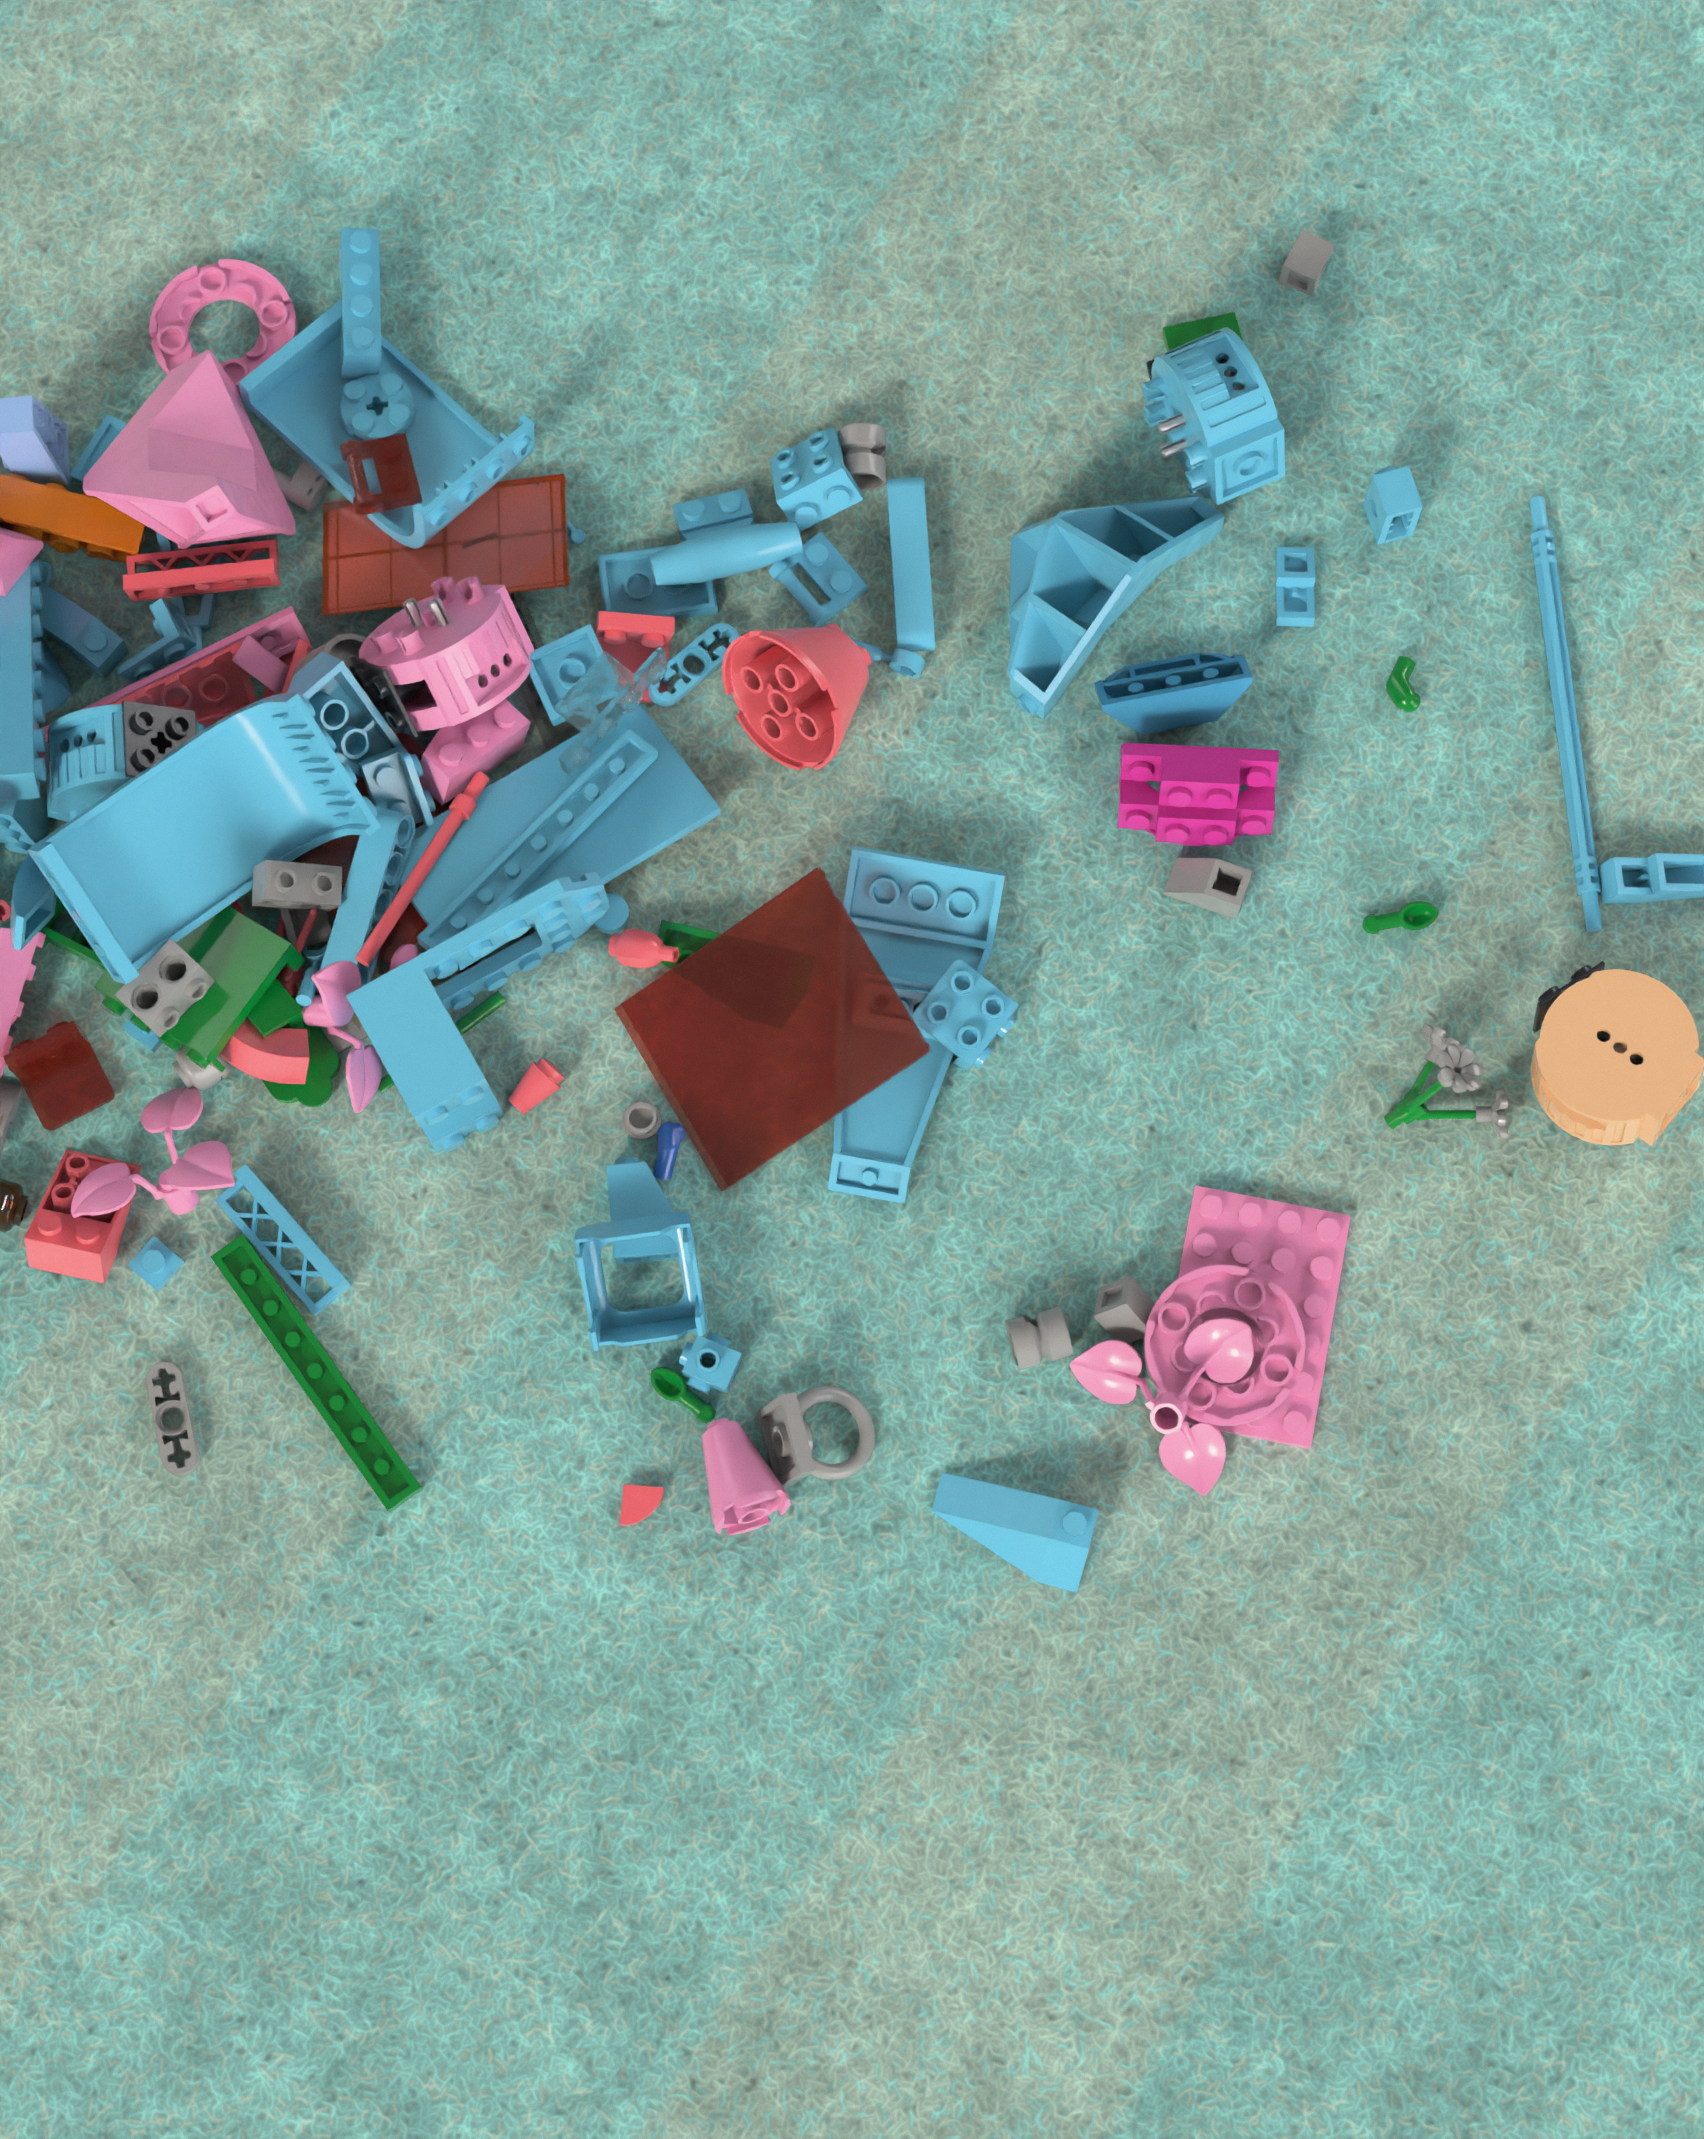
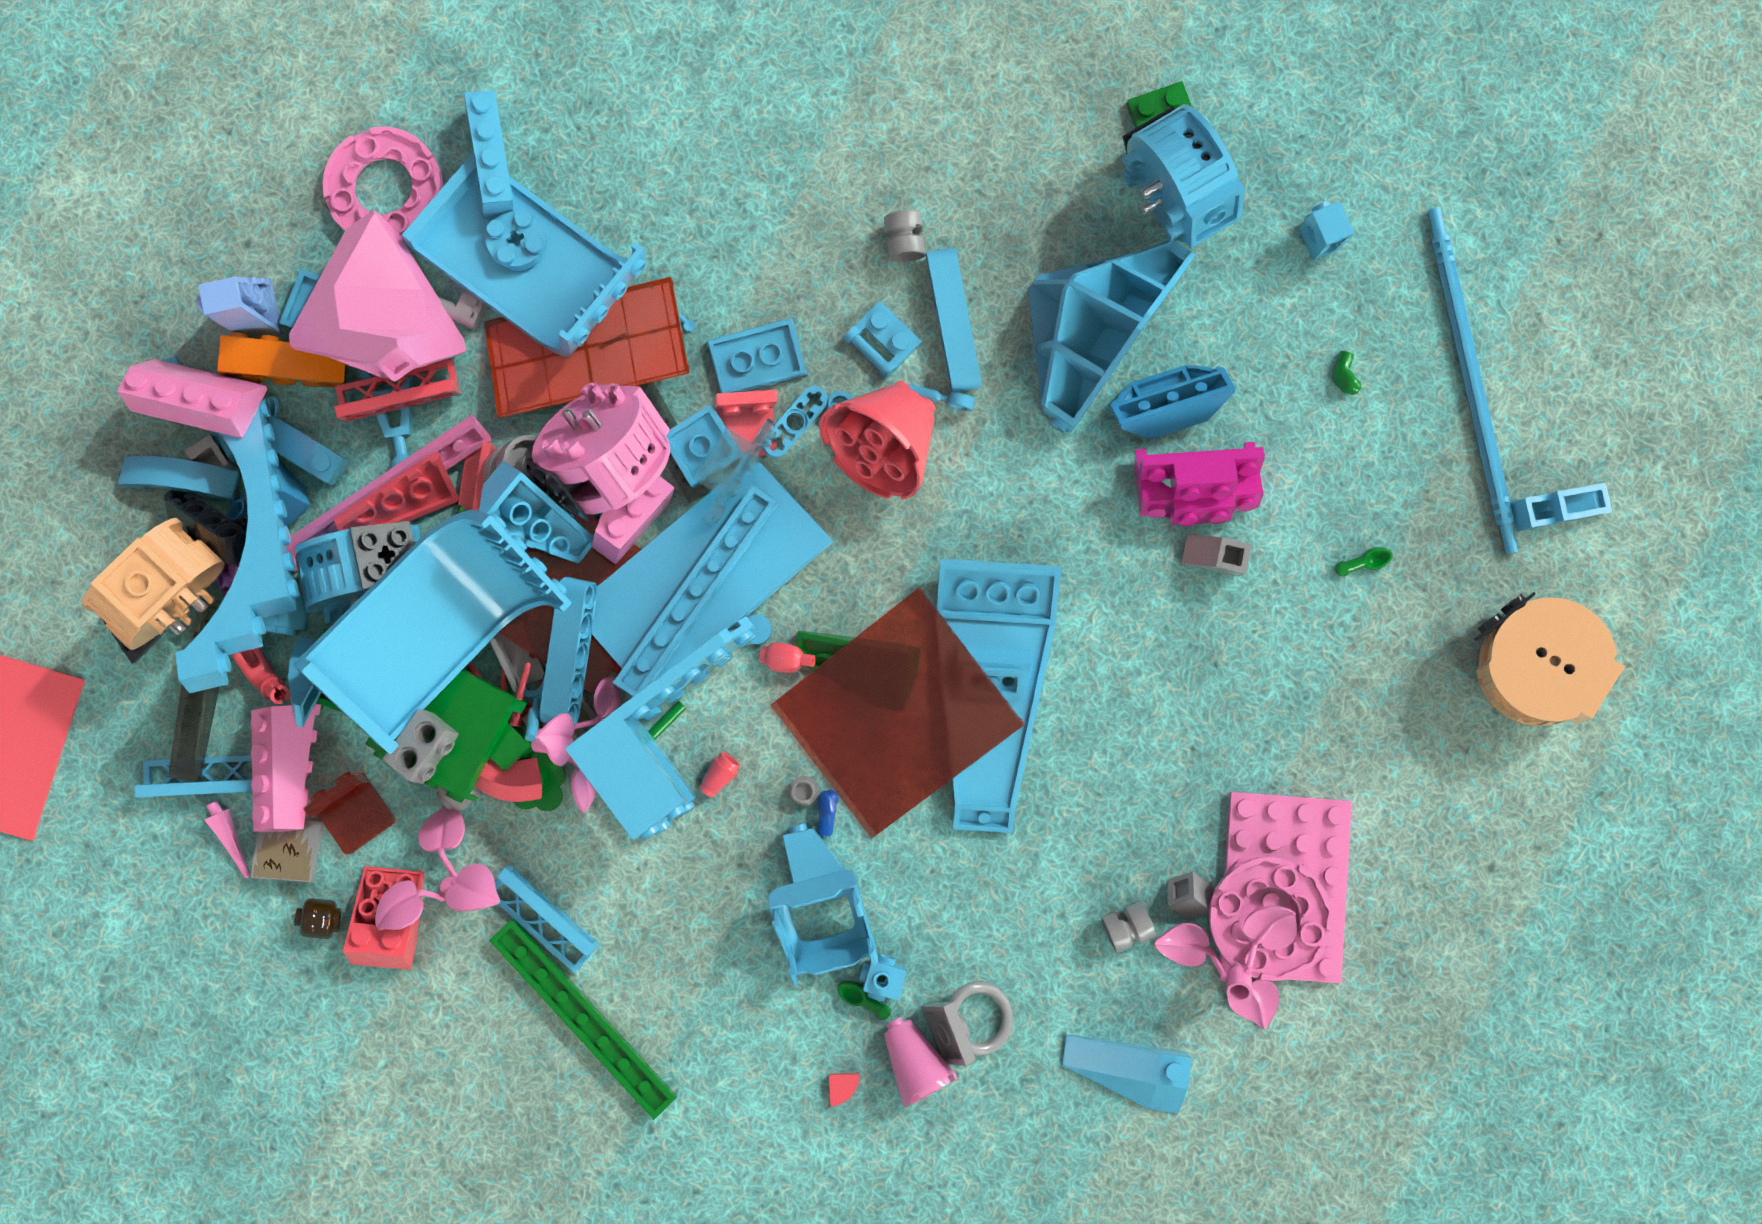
camera: 10 degrees left, 10 degrees up
(155, 1263) = (447, 948): medium azure plate -> none
(157, 1392) = (494, 1085): light grey beam -> none
(172, 647) = (385, 447): medium azure bracket -> none
(261, 664) = (456, 466): bright pink sticker -> none
(297, 885) = (511, 649): light grey brick -> none
(393, 469) = (536, 292): clear red plate -> none
(395, 784) = (576, 557): medium azure bracket -> none
(461, 809) = (631, 566): coral bar -> none
(721, 541) = (803, 319): medium azure plate -> none
(813, 480) = (868, 259): medium azure bracket -> none
(965, 1014) = (1043, 683): medium azure bracket -> none
(1295, 586) = (1253, 302): medium azure slope -> none
(1306, 262) = (1235, 33): light grey panel -> none
(1457, 1072) = (1430, 695): light grey plant -> none

